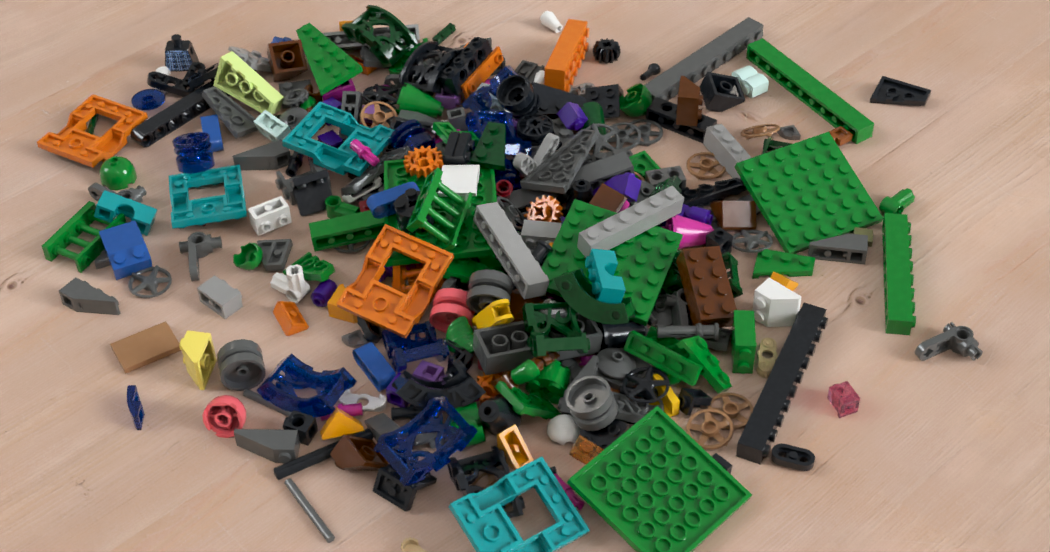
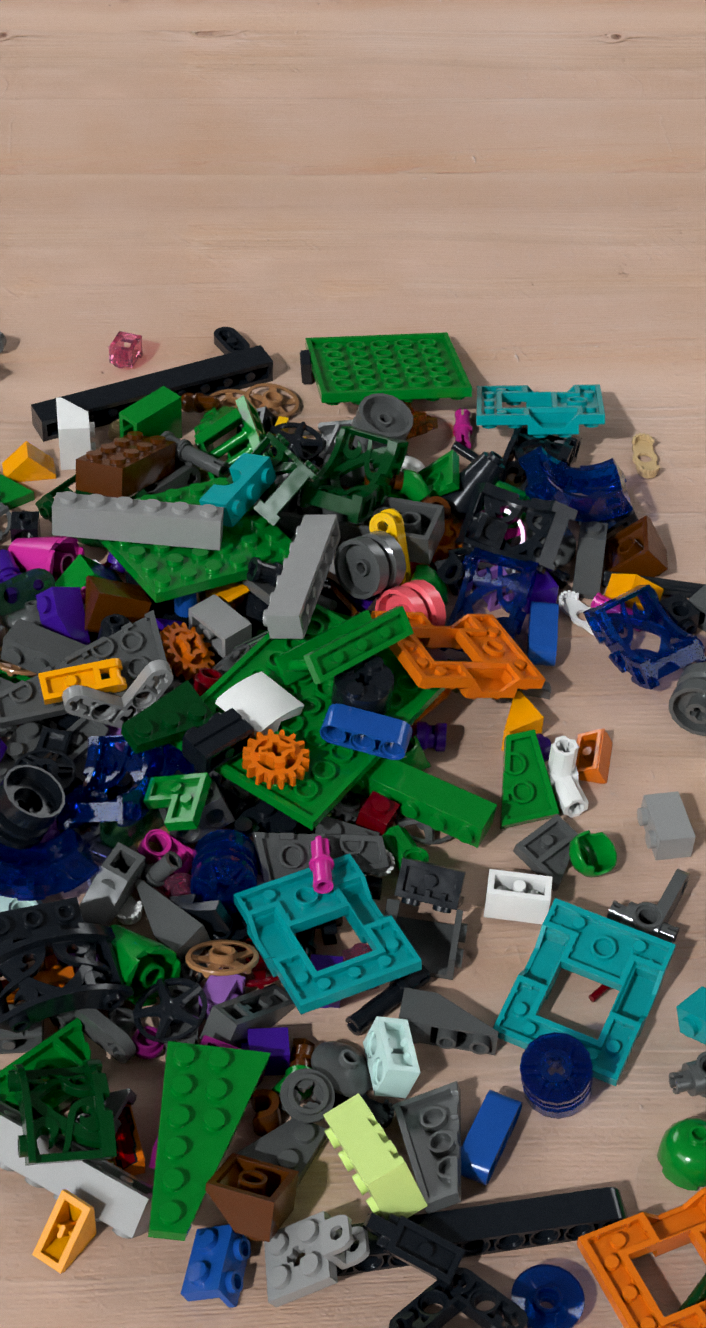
camera: 145 degrees left, 0 degrees up
(559, 150) = (87, 675): none -> light orange plate
(745, 388) = (198, 402): none -> reddish brown axle

